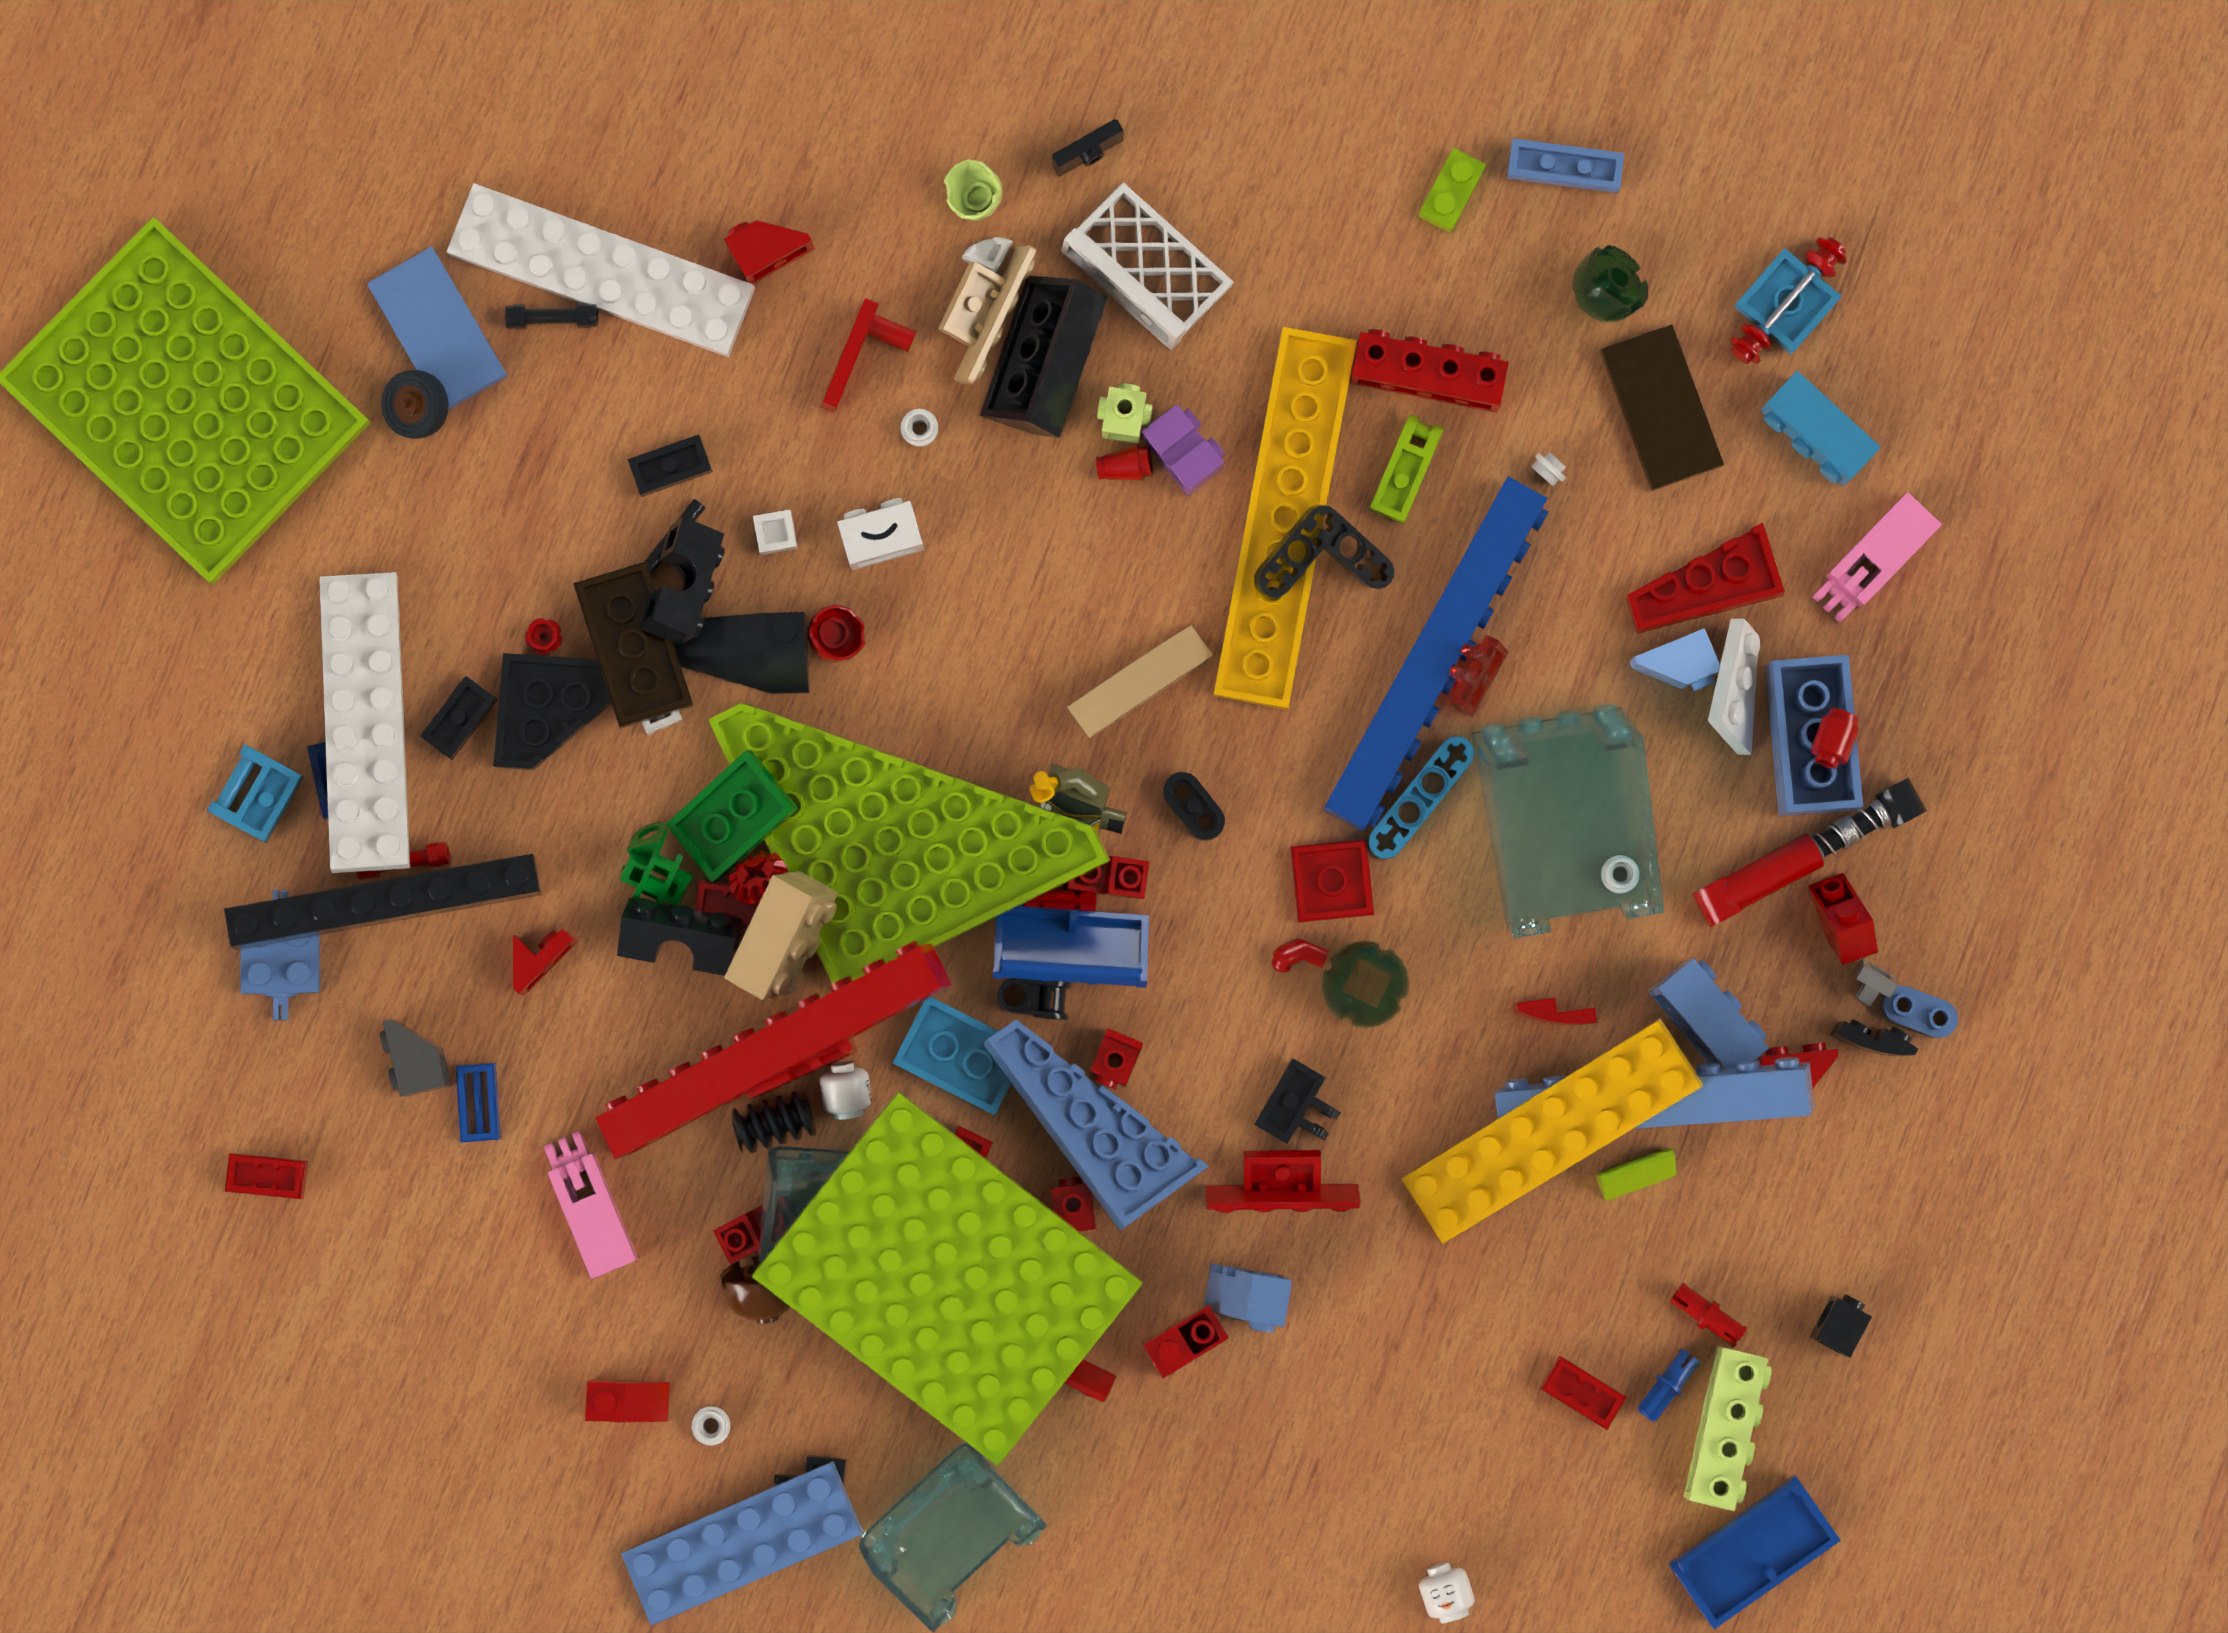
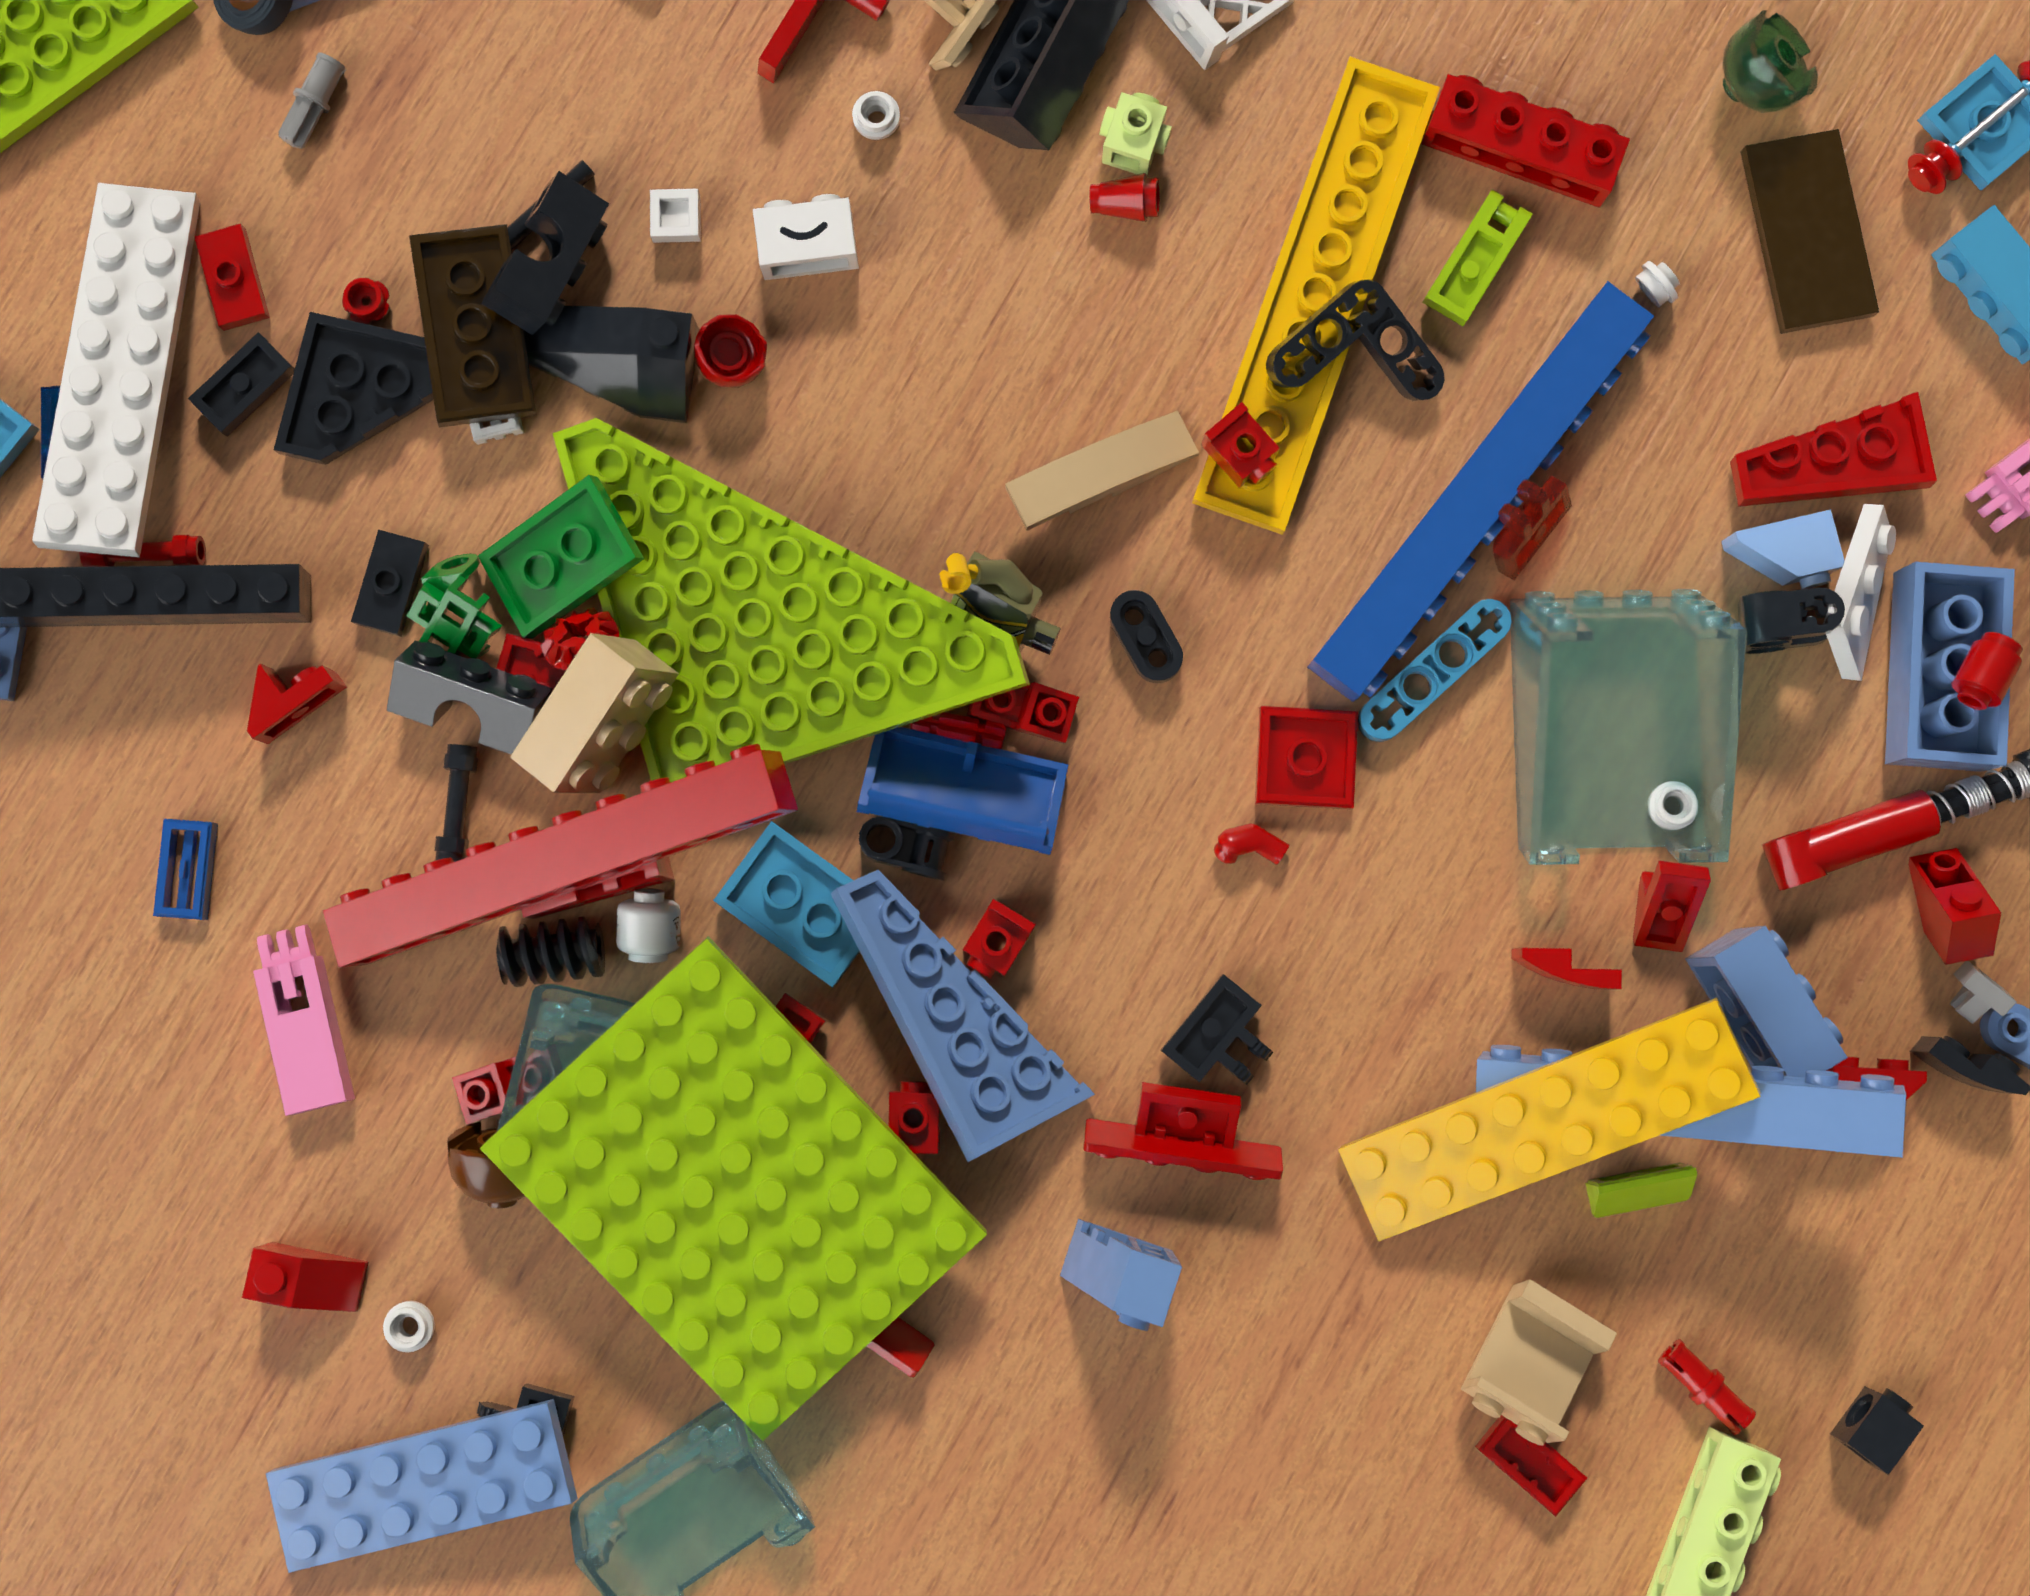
camera: 10 degrees right, 0 degrees up
(416, 1061) = (111, 803): dark grey slope -> none
(434, 633) = (232, 277): none -> red plate
(473, 485) = (311, 100): none -> light grey axle
(599, 855) = (389, 583): none -> black plate
(670, 465) = (558, 114): black plate -> none
(678, 986) = (460, 762): none -> black bar
(1183, 450) = (1200, 190): medium lavender brick -> none
(1185, 1341) = (1029, 1316): red slope -> none
(1229, 650) = (1222, 447): none -> red brick
(1349, 1007) = (1315, 926): clear green piece -> none
(1574, 1315) = (1535, 1361): none -> tan panel
(1626, 952) = (1669, 905): none -> red slope
(1667, 1386) = (1642, 1470): blue axle -> none
(1673, 723) = (1776, 618): none -> black piece

